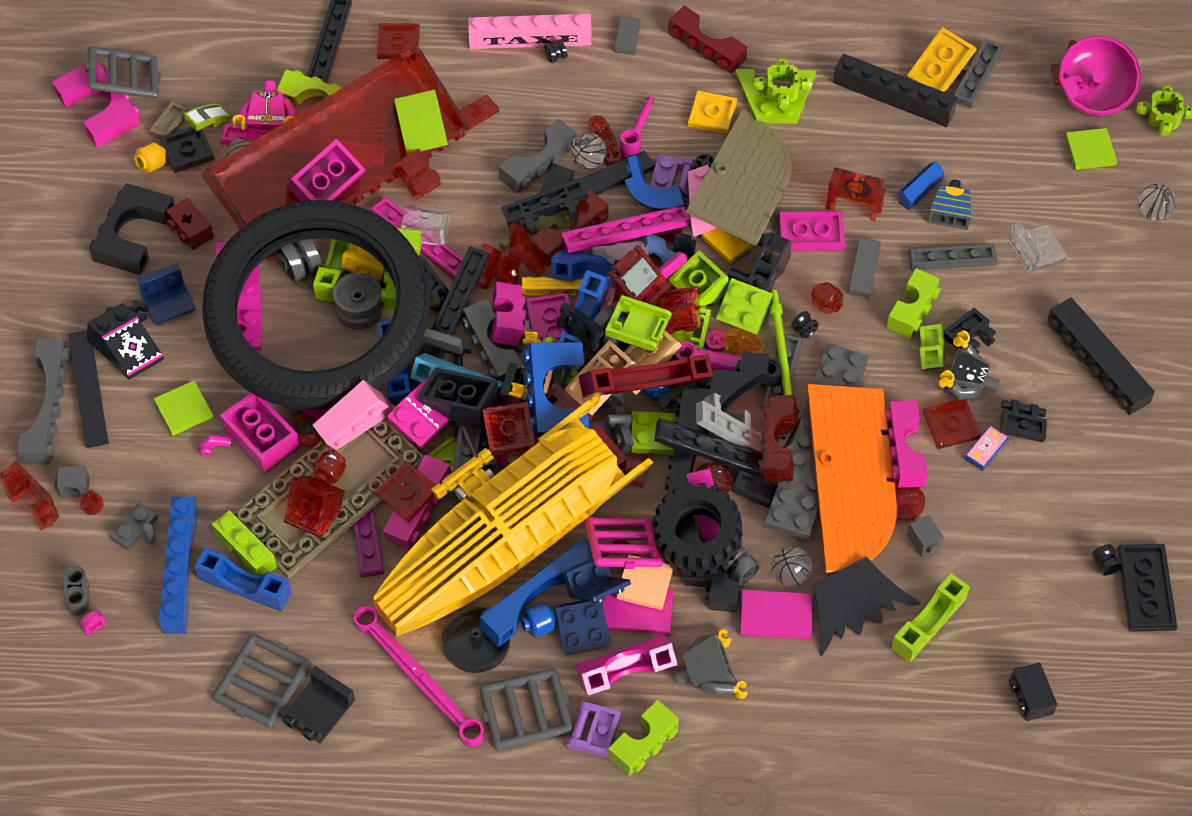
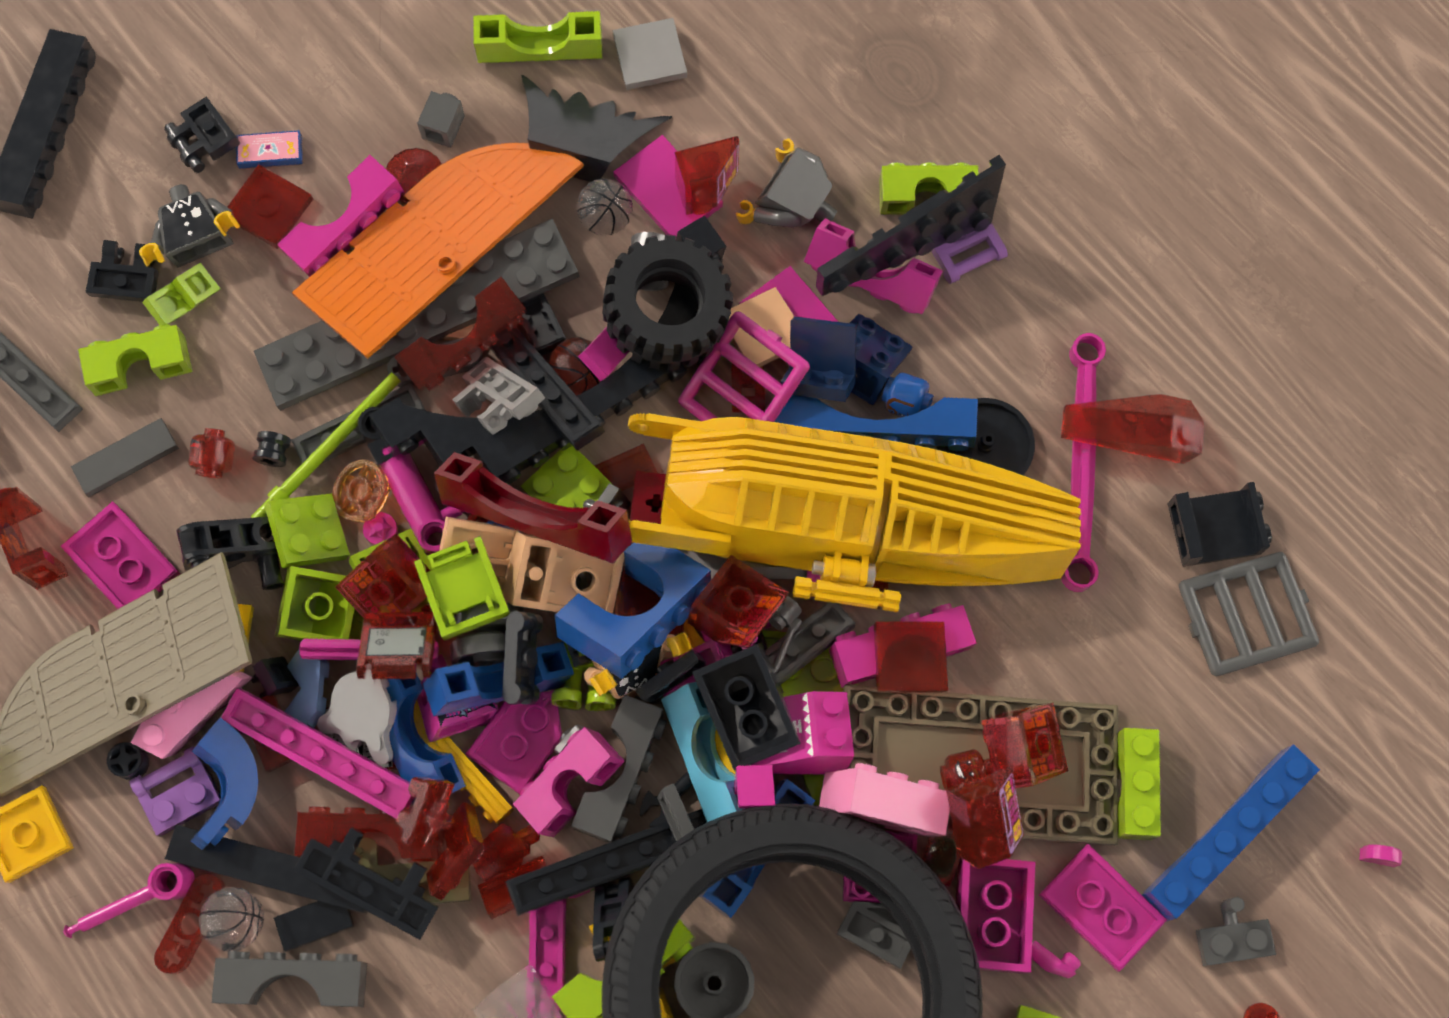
camera: 135 degrees left, 15 degrees up
(76, 590) = (1372, 914): dark grey beam -> none
(213, 485) = (1102, 907): none -> dark pink tile
(221, 572) = (1189, 769): blue arch -> none
(299, 448) = (986, 818): none -> clear red slope
(368, 546) = (997, 657): magenta tile -> none
(401, 717) = (1140, 425): none -> clear red wedge
(417, 366) = (754, 786): none -> dark pink panel
(522, 738) = (1003, 367): dark grey bar -> none
(552, 242) = (428, 812): none -> clear red hips
(615, 683) = (928, 225): none -> black wing
(757, 616) = (706, 173): none -> clear red slope
(868, 671) = (649, 54): none -> light grey tile

